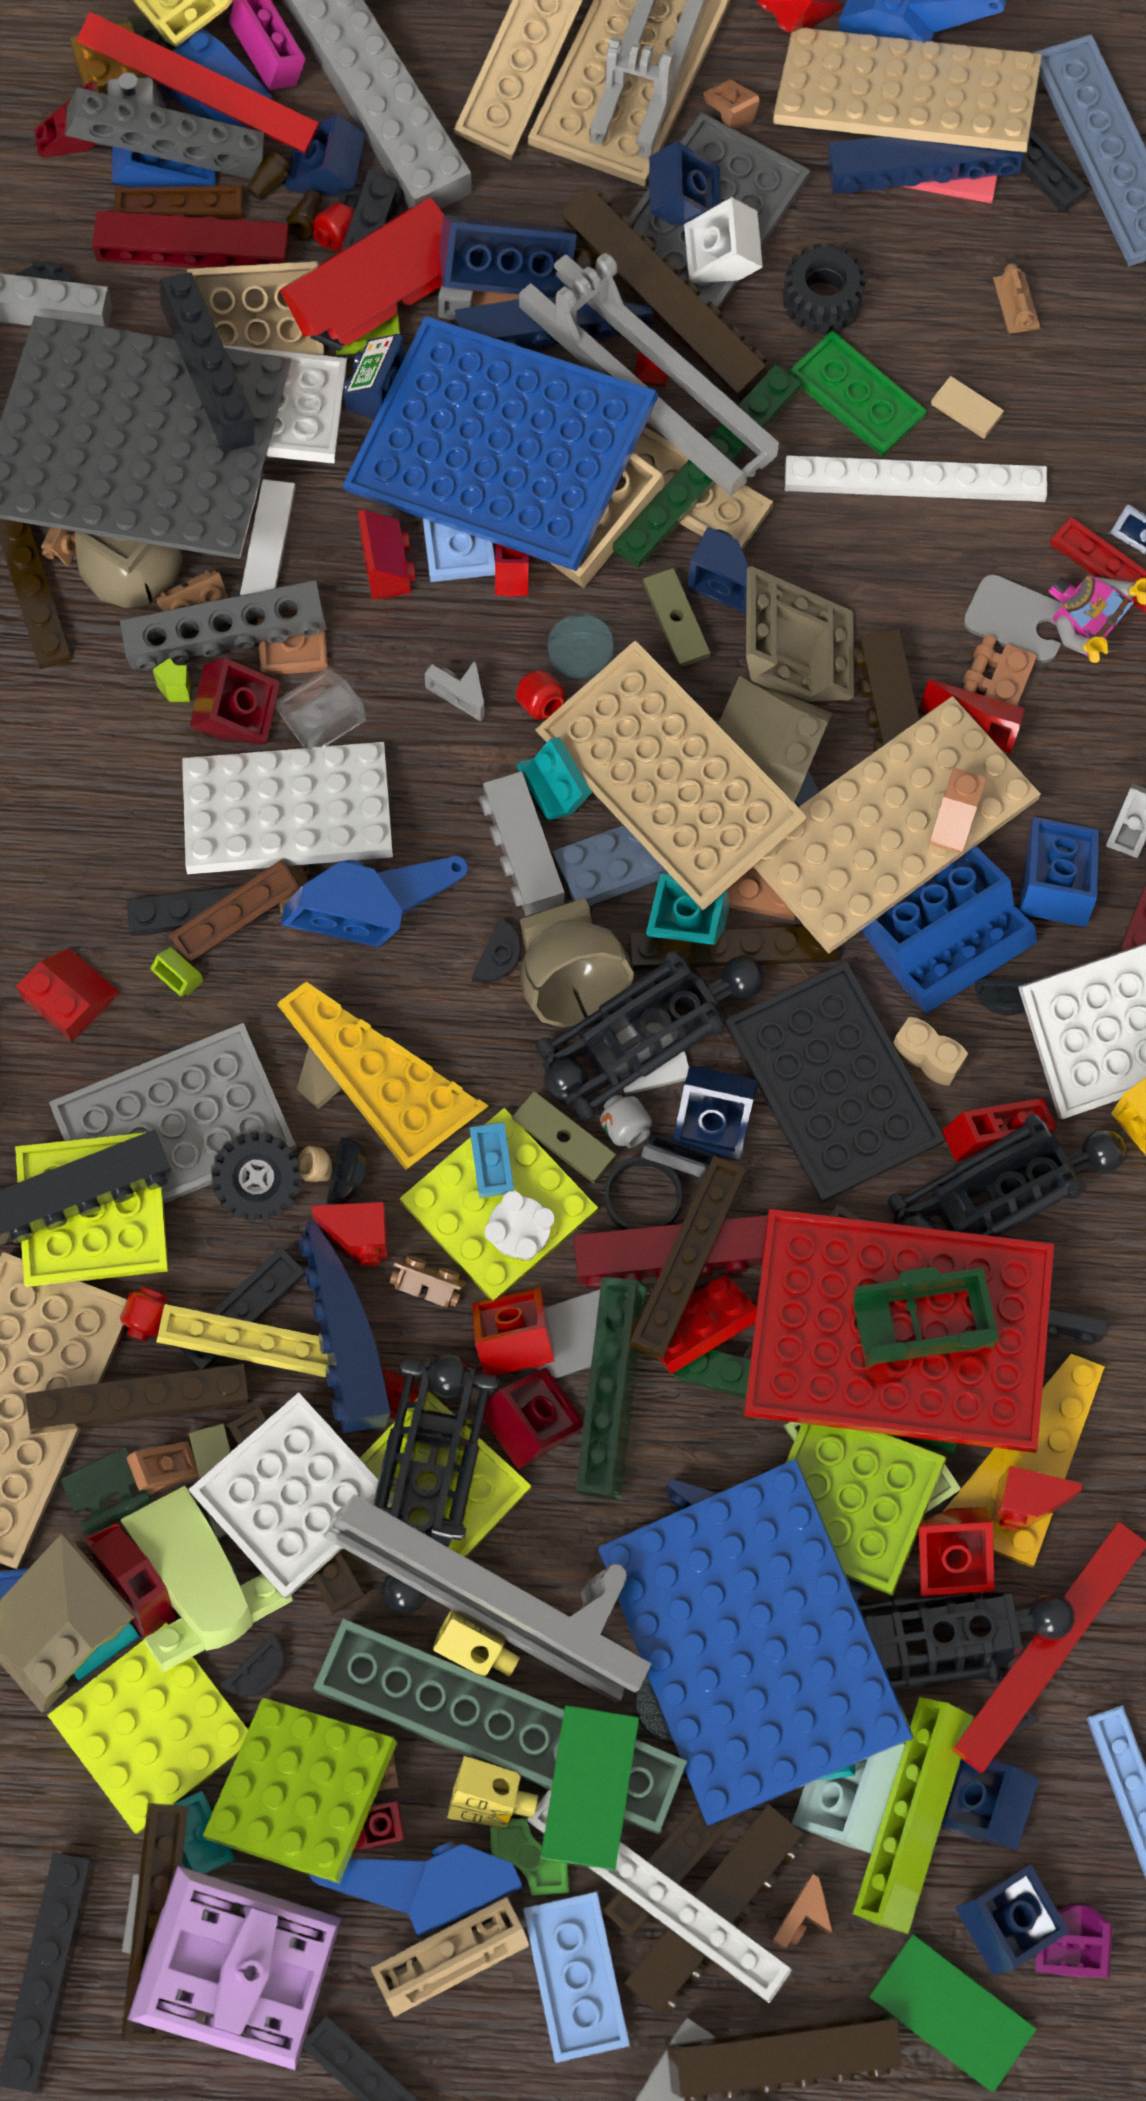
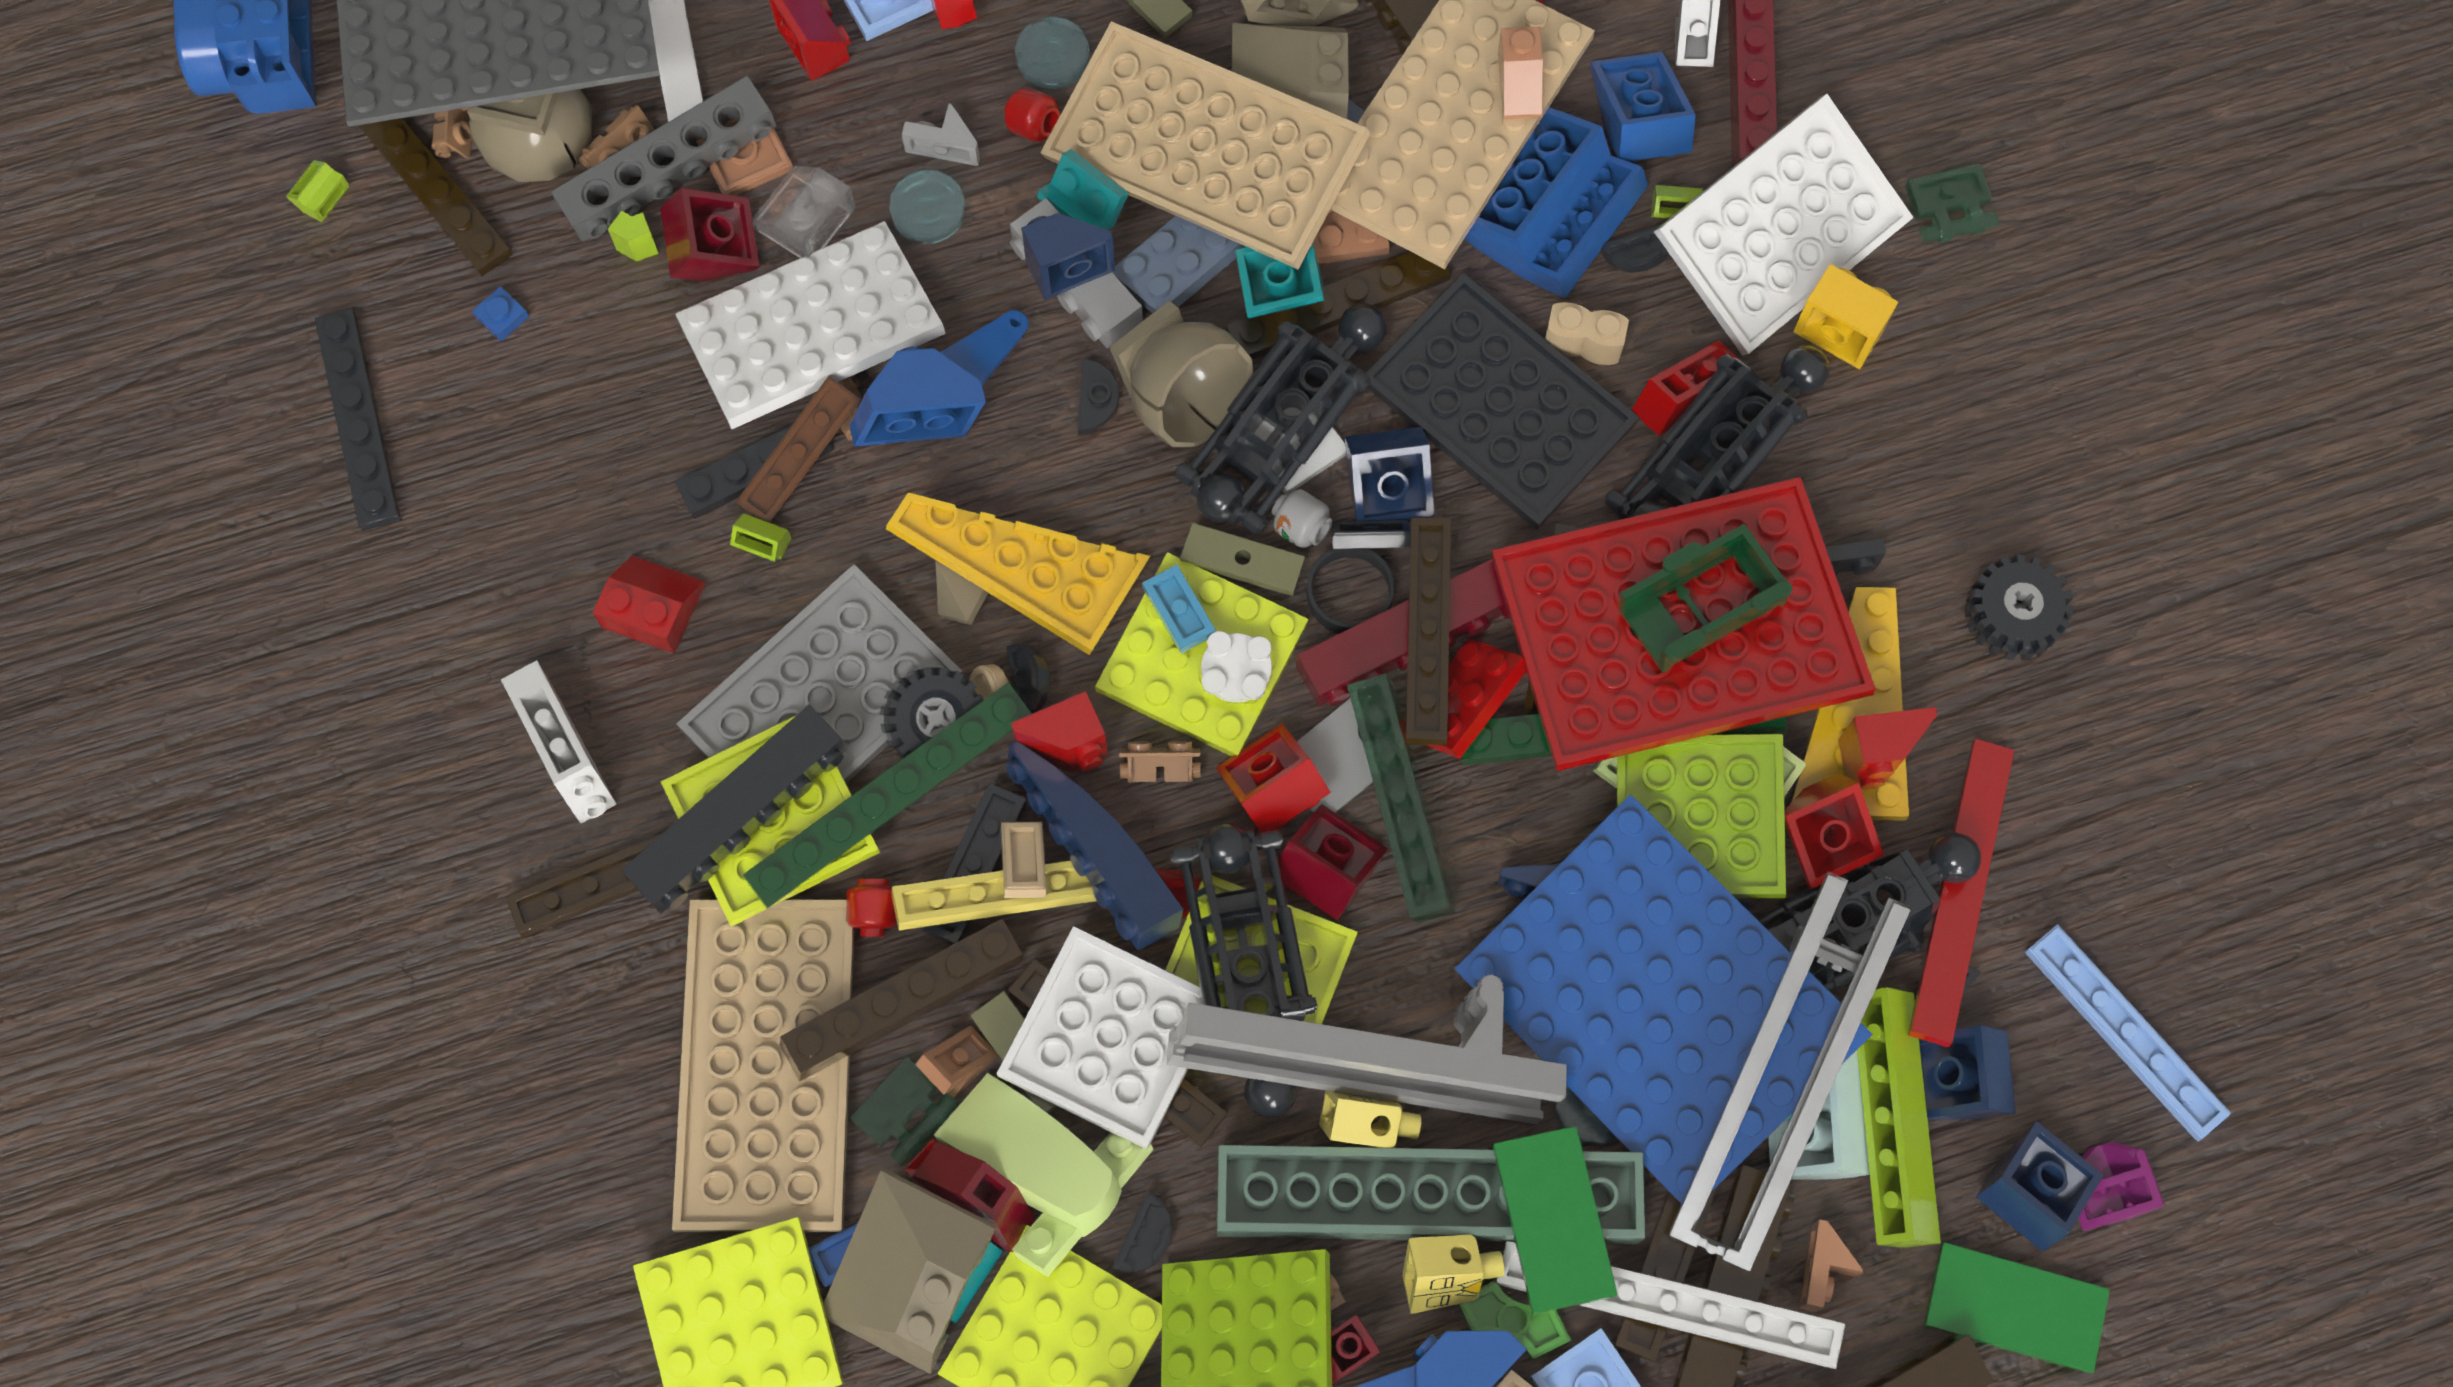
camera: 20 degrees left, 0 degrees up
(42, 706) = (500, 313): none -> blue plate
(190, 1227) = (885, 796): none -> dark green plate
(280, 1321) = (1023, 860): none -> tan tile
(424, 741) = (927, 206): none -> clear light blue tile
(515, 827) = (1066, 253): none -> dark blue slope
(884, 1641) = (1867, 971): none -> light grey piece
(1053, 958) = (1672, 194): none -> lime piece

